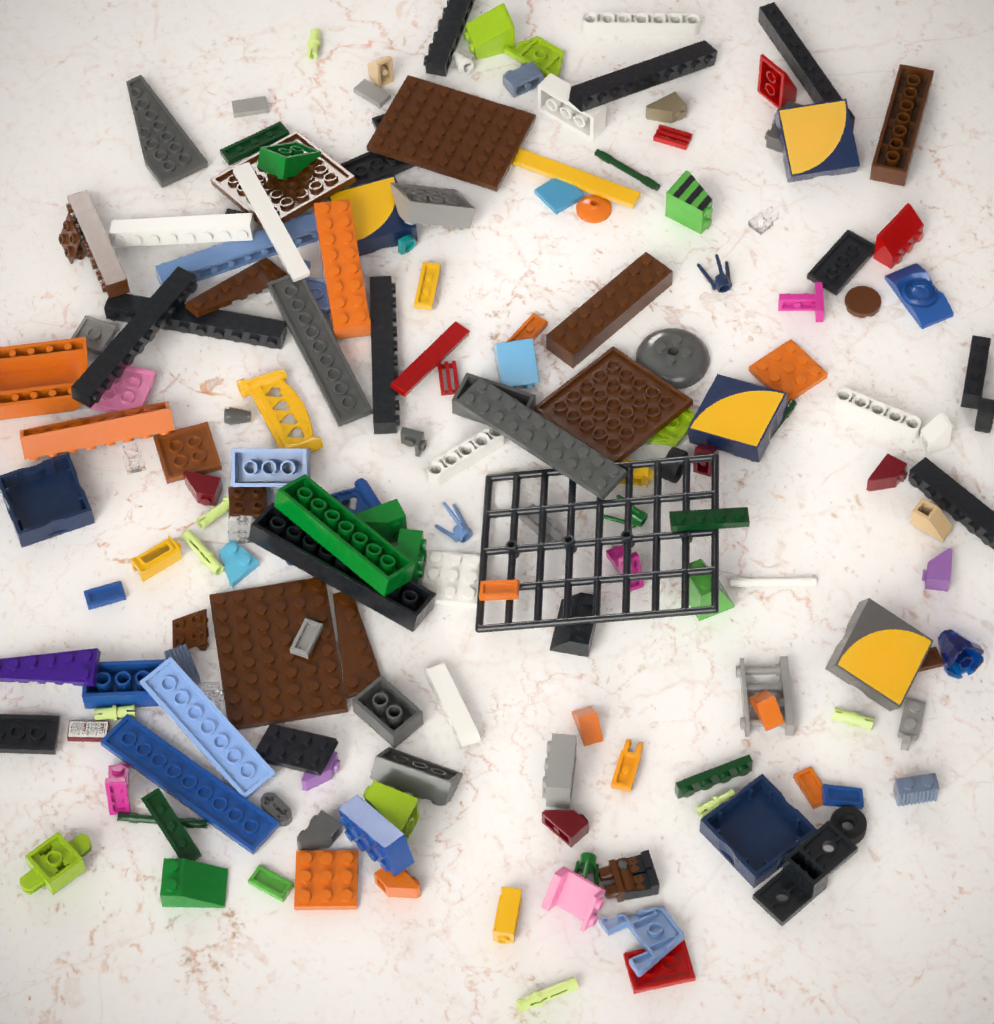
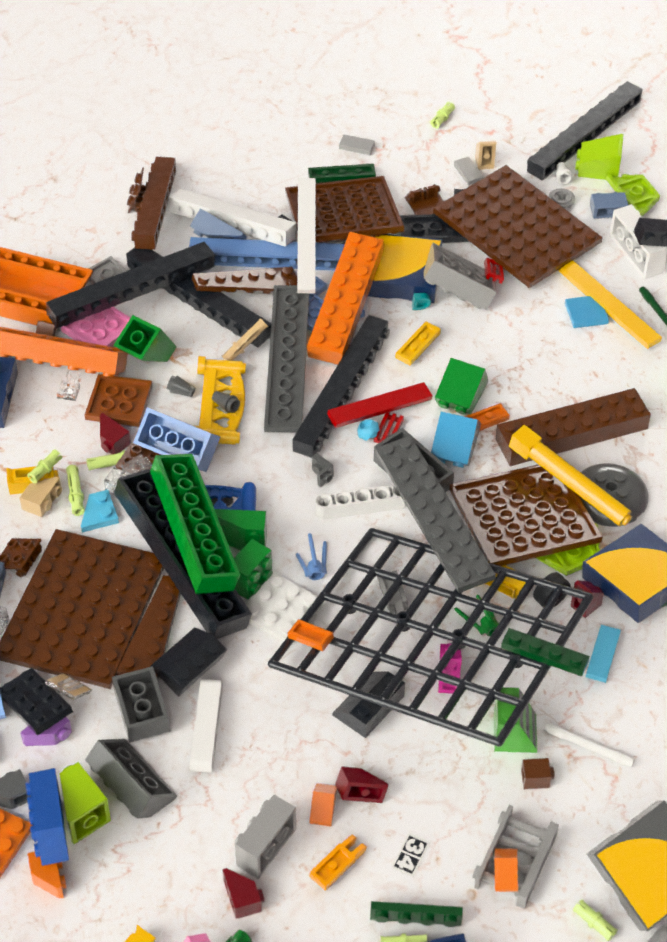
camera: 25 degrees right, 5 degrees down
(74, 412) = (45, 328): none -> reddish brown tile
(164, 144) = (266, 147): dark grey wing -> none
(167, 542) = (44, 466): none -> yellowish green pin
(170, 247) = (212, 227): none -> slope
(174, 571) = (40, 496): none -> tan slope
(182, 386) = (145, 341): none -> green slope
(250, 513) = (138, 461): none -> clear brick
(271, 349) = (239, 346): none -> tan pin
(286, 159) = (354, 192): green slope -> none
(291, 413) = (226, 401): none -> dark grey cone
(306, 638) = (112, 604): light grey tile -> none
(315, 724) = (68, 686): none -> piece
(351, 141) = (424, 200): none -> reddish brown hinge
(404, 656) = (189, 660): none -> black slope
(432, 386) = (367, 429): none -> medium azure plate
(453, 187) = (490, 270): none -> red tile
(472, 84) = (563, 194): none -> light grey gear
(492, 312) = (461, 386): none -> green slope
(587, 343) = (529, 445): none -> yellow brick
(593, 209) = (611, 336): orange dish -> none
(610, 696) = (360, 785): none -> dark red slope
(680, 734) = (410, 855): none -> white sticker
(742, 495) = (603, 653): none -> medium azure tile
(745, 623) = (536, 773): none -> reddish brown brick

